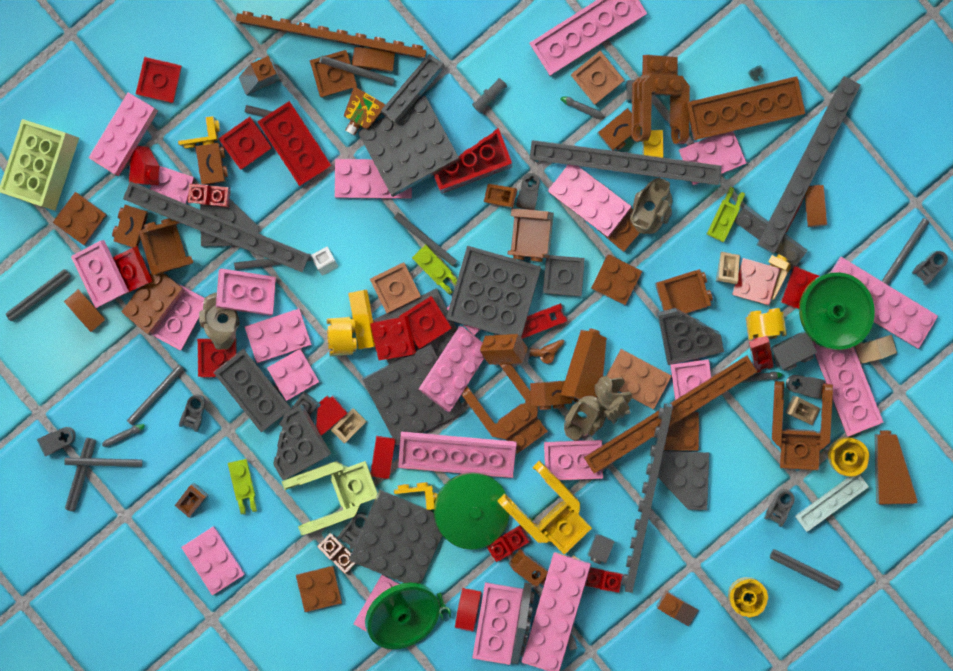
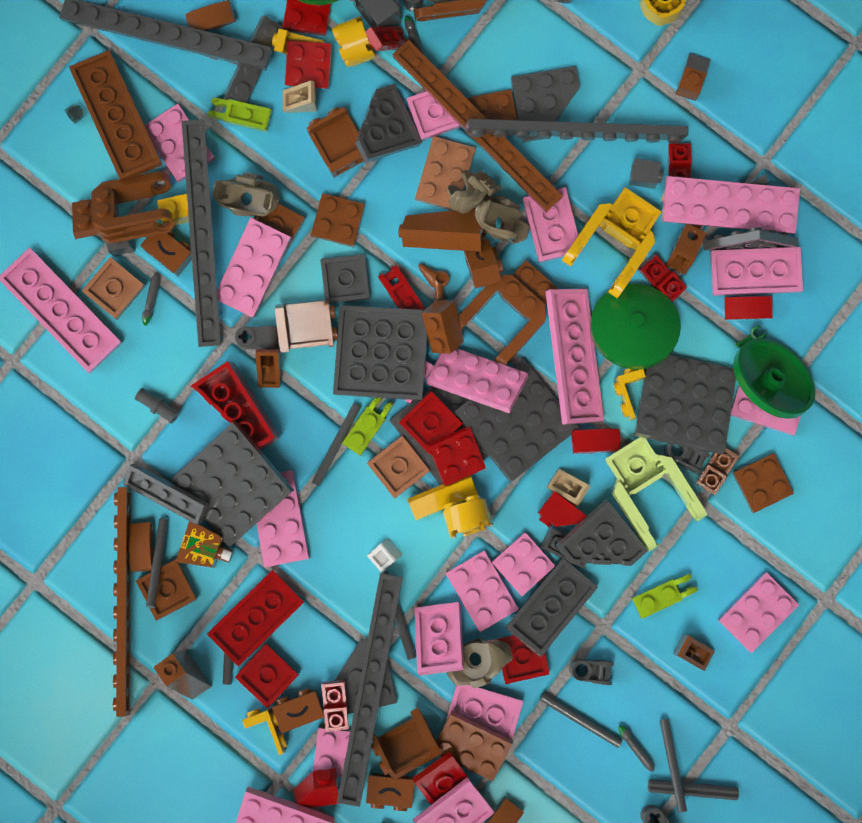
camera: 90 degrees left, 5 degrees down
(158, 80) = (213, 793): red plate -> none

